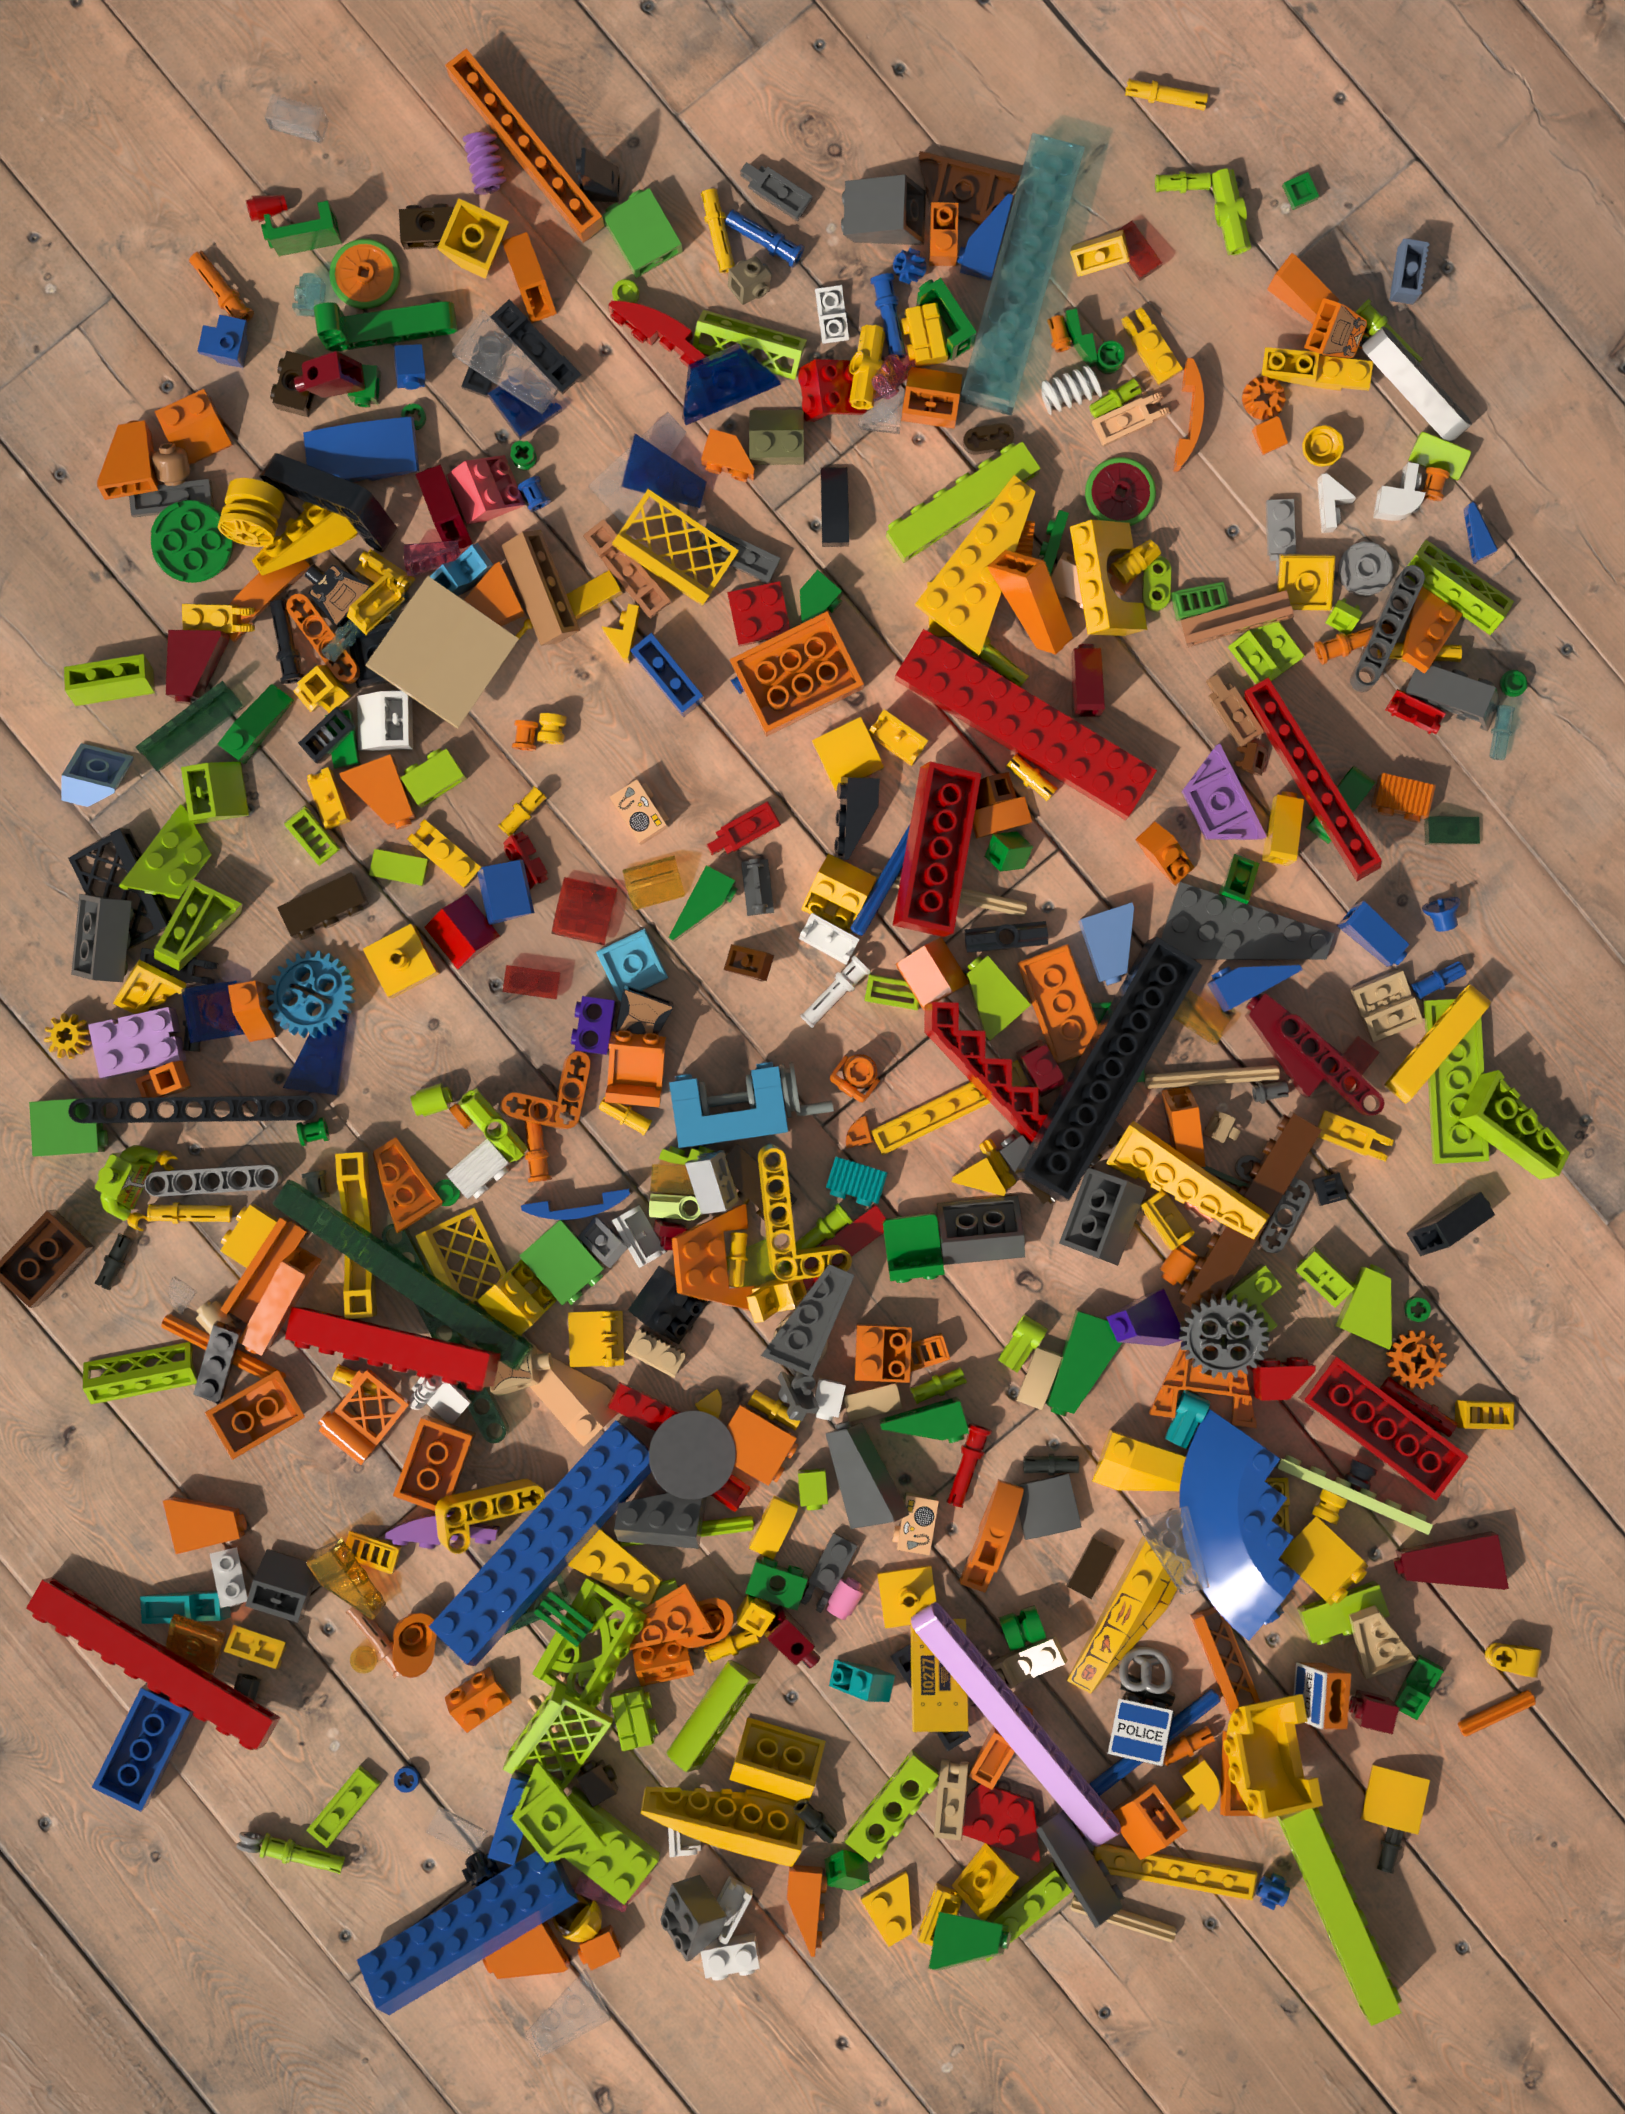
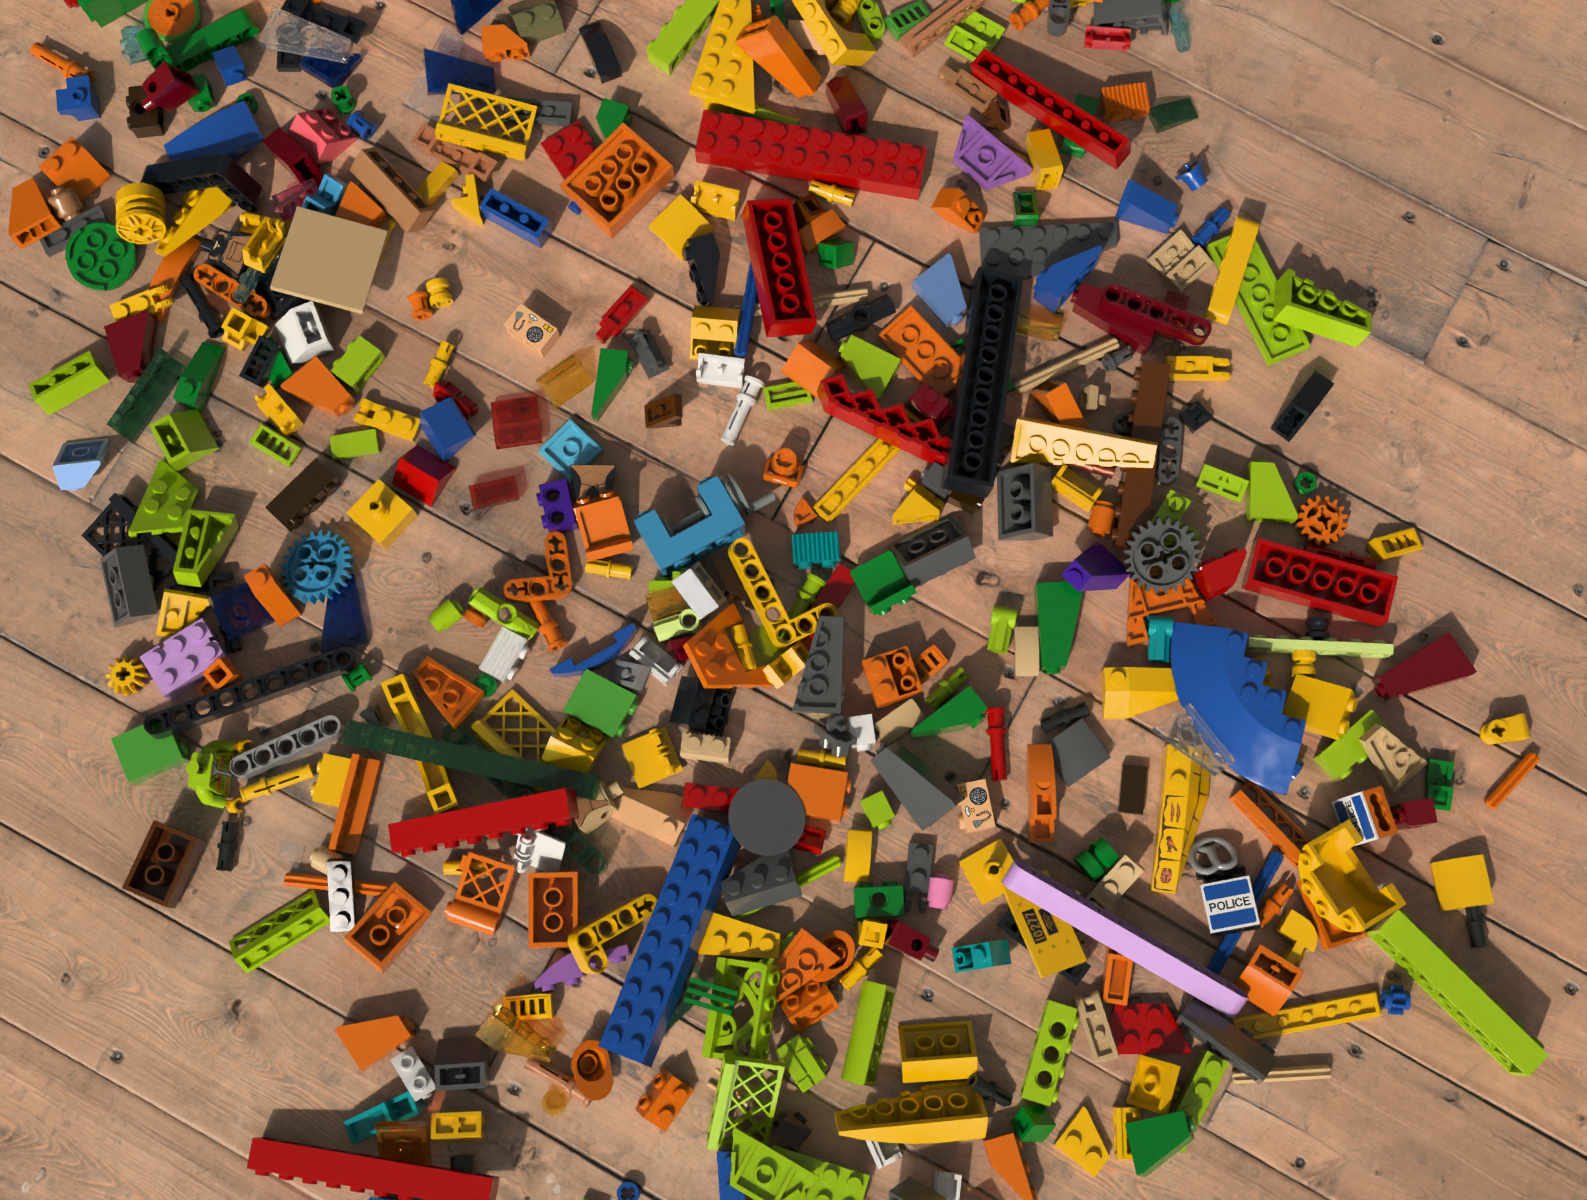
camera: 20 degrees left, 10 degrees down
(276, 1304) = (373, 835): orange slope -> none

